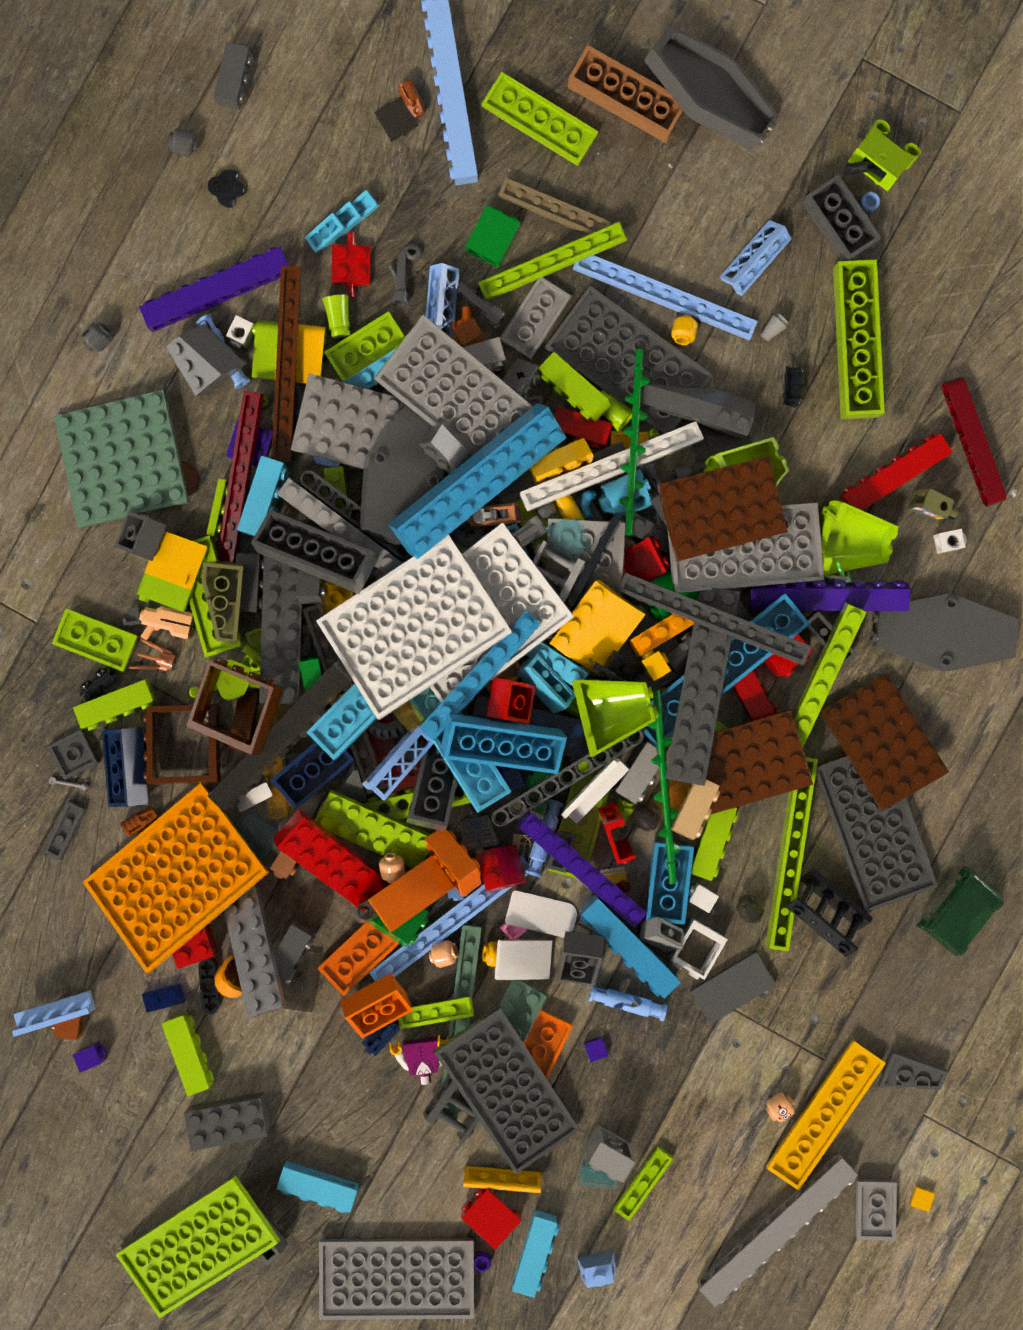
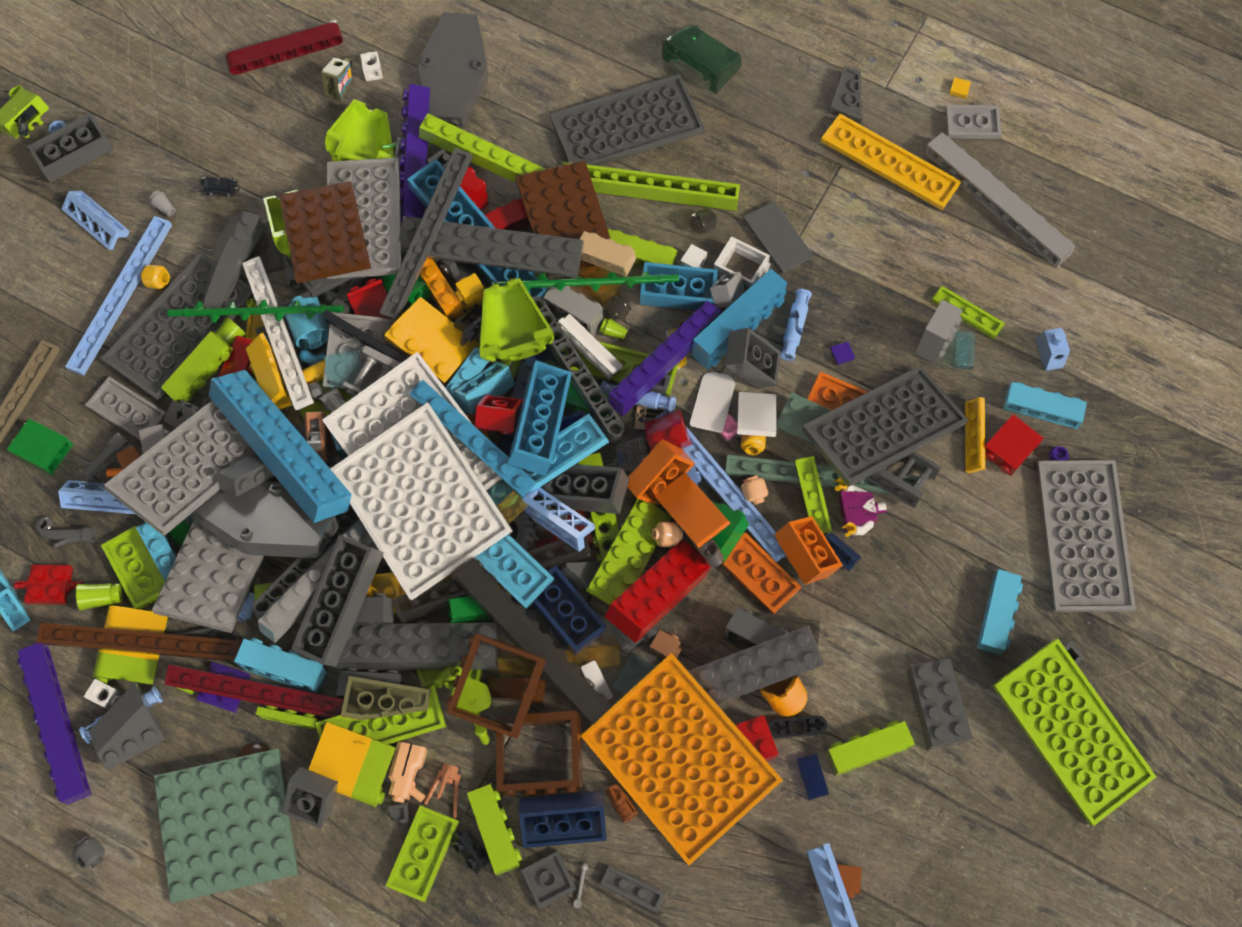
camera: 85 degrees left, 20 degrees down
(90, 1056) = (879, 855): dark purple brick -> none
(552, 261) = (72, 392): lime tile -> none
(613, 819) = (619, 334): red panel -> none
(780, 1107) = (885, 195): light nougat head -> none
(838, 901) = (703, 145): black fence -> none
(858, 339) = (181, 133): lime brick -> none
(884, 742) = (550, 113): reddish brown plate -> none
(898, 473) = (304, 102): red brick -> none

